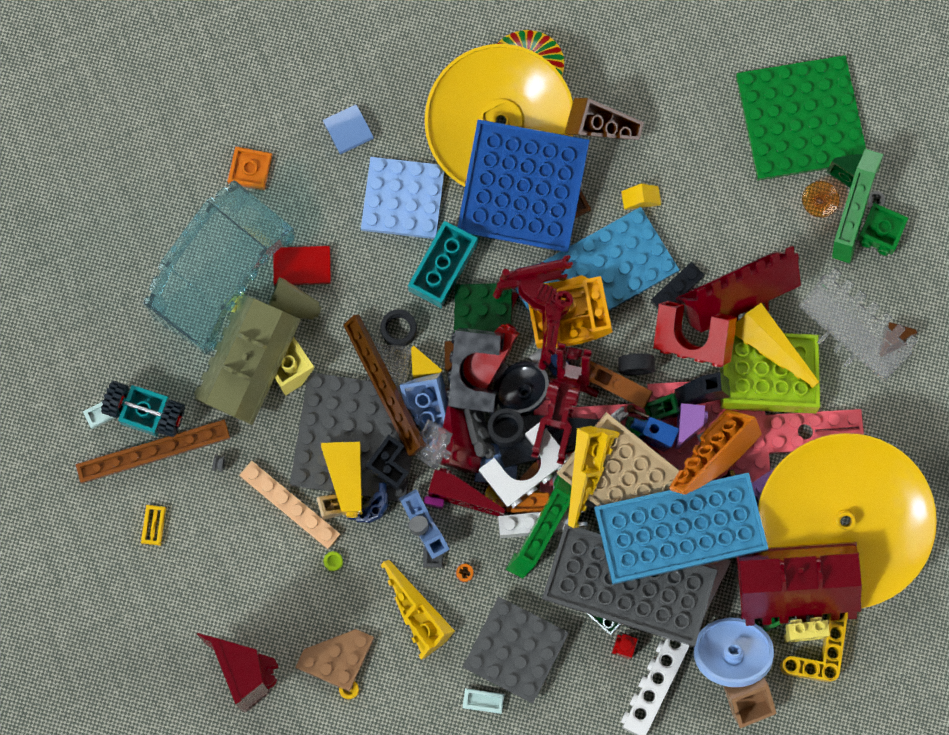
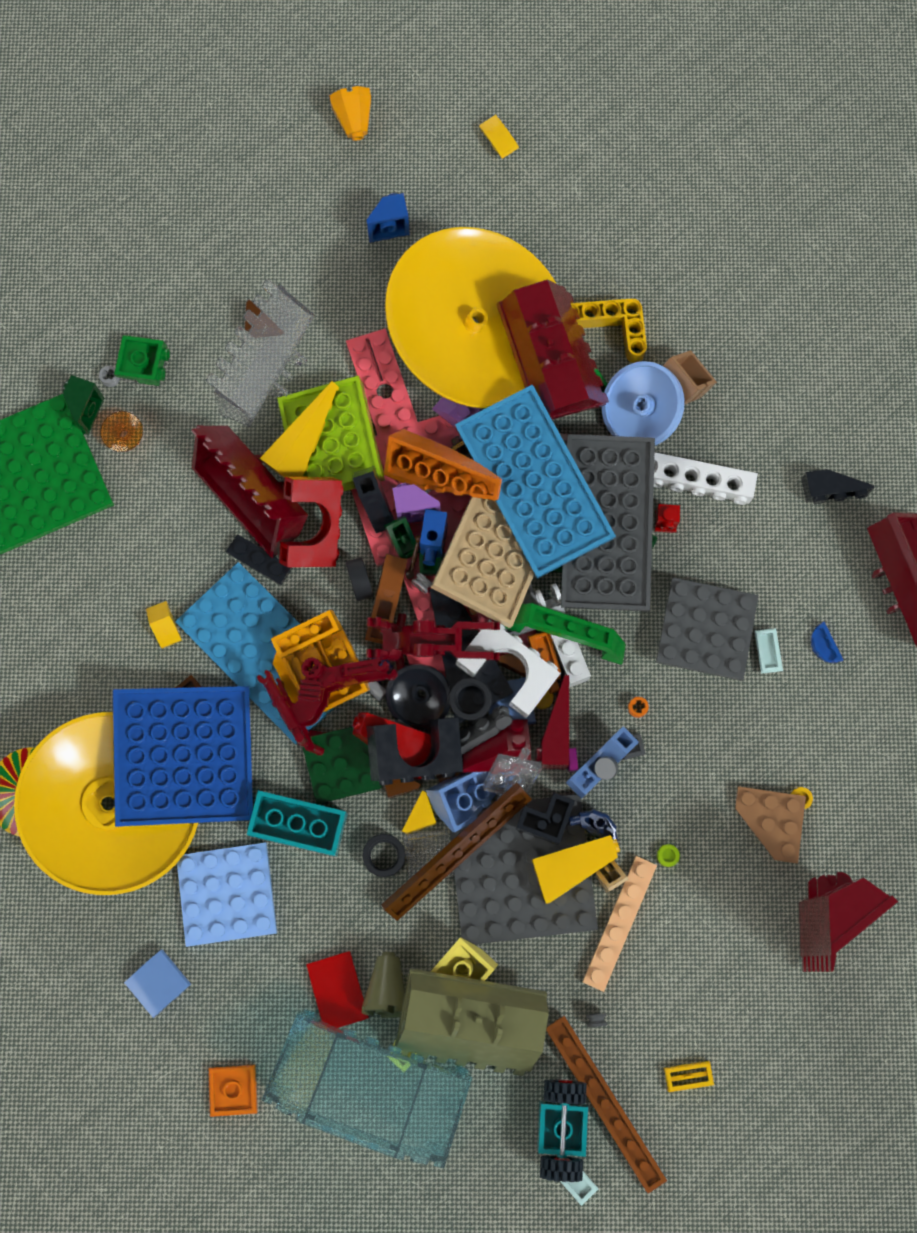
camera: 105 degrees left, 0 degrees up
(426, 624) = (704, 735): yellow wedge -> none
(574, 353) = (360, 650): dark red plate -> none
(590, 453) = (481, 592): yellow wedge -> none
(598, 120) = (86, 685): reddish brown wedge -> none
(806, 631) = (600, 337): light yellow plate -> none
(855, 205) = (121, 384): green slope -> none

